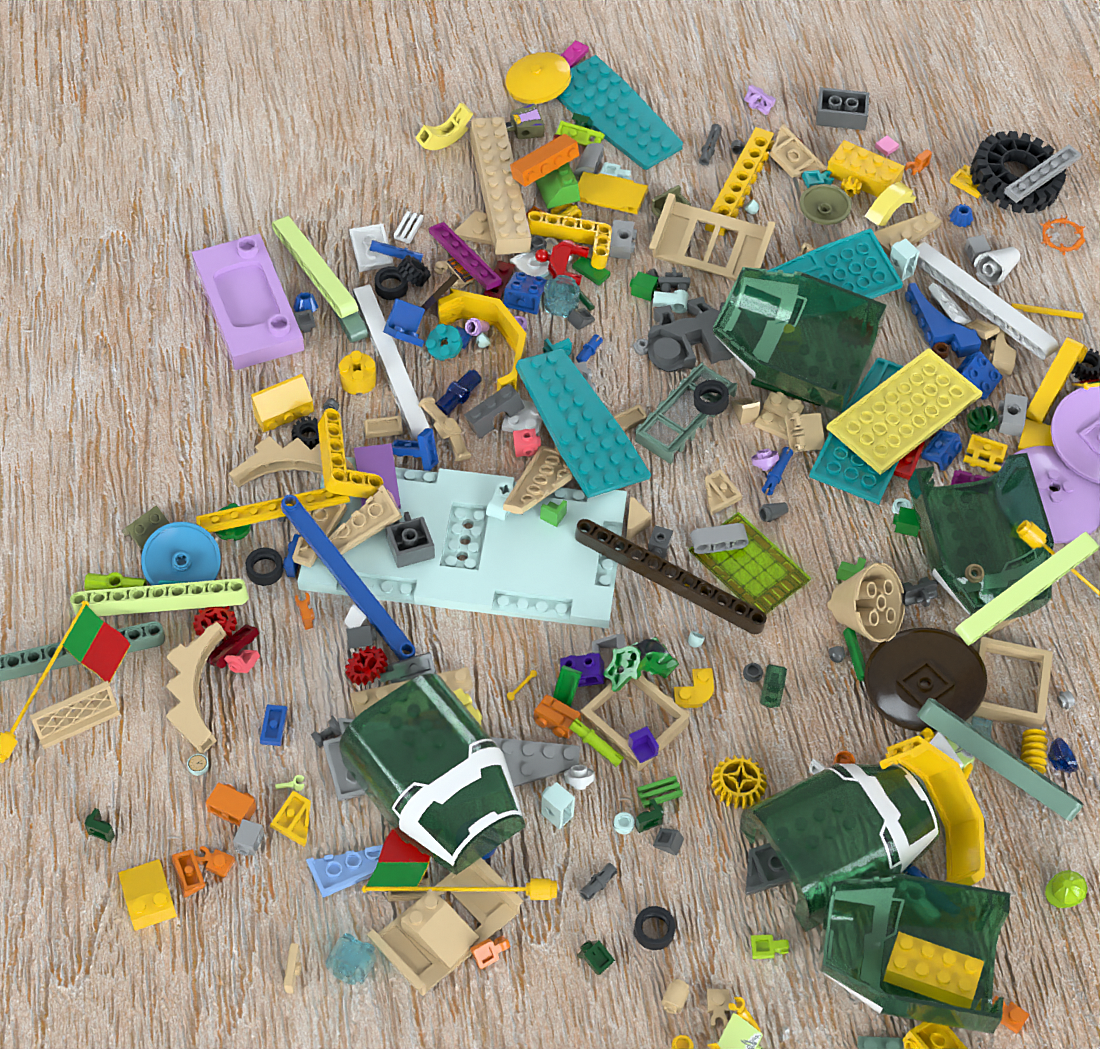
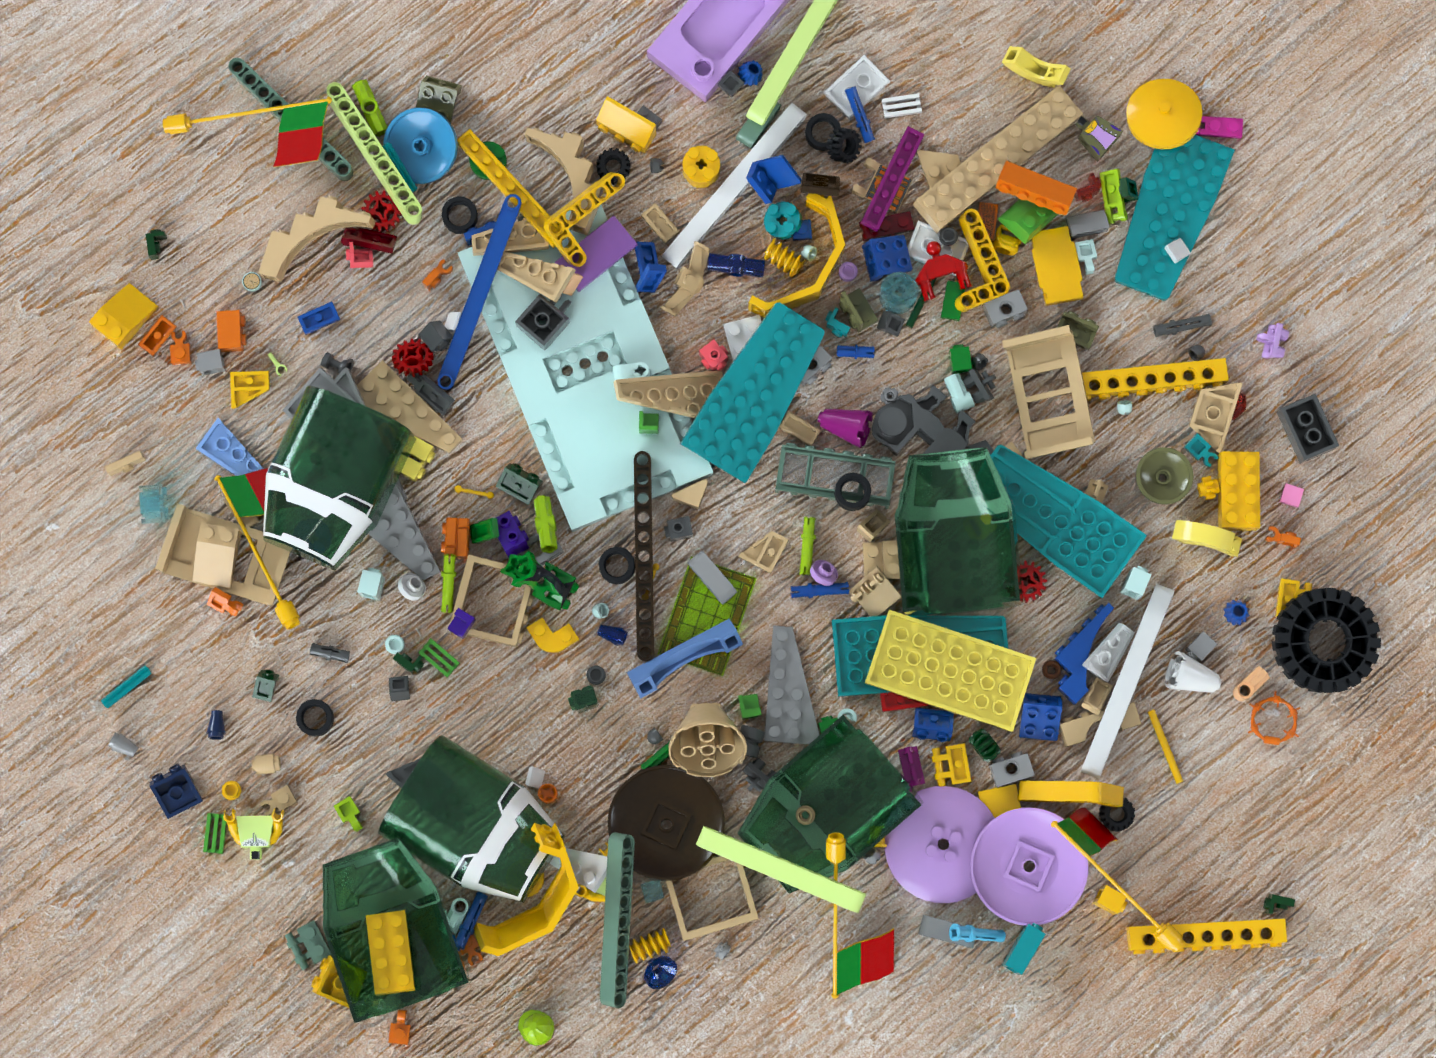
camera: 60 degrees right, 25 degrees up
(72, 723) = (232, 162): tan fence -> none
(475, 326) = (815, 238): lavender cone -> none
(476, 355) = (783, 258): none -> yellow piece
(481, 417) = (714, 303): dark grey arch -> none
(540, 643) = (519, 483): none -> bracket
(555, 329) = (858, 310): none -> olive bracket
(592, 636) = (545, 524): none -> lime piece
(611, 1025) = (216, 726): none -> dark blue cone
(648, 380) = (847, 424): none -> magenta cone
(651, 117) = (1177, 250): none -> white slope
(662, 618) = (620, 551): none -> black tyre
(724, 639) = (615, 635): none -> clear blue cone
(727, 457) = (807, 545): none -> lime pin
(755, 780) = (491, 713): yellow gear -> none
(772, 511) = (772, 608): dark grey cone -> none
(778, 557) = (716, 639): none -> medium blue arch
(854, 536) = (789, 705): none -> light grey wing
(911, 229) = (1178, 566): tan wing -> none
(1026, 235) = (1251, 683): none -> light nougat piece
(1042, 173) = (1325, 666): light grey plate -> none

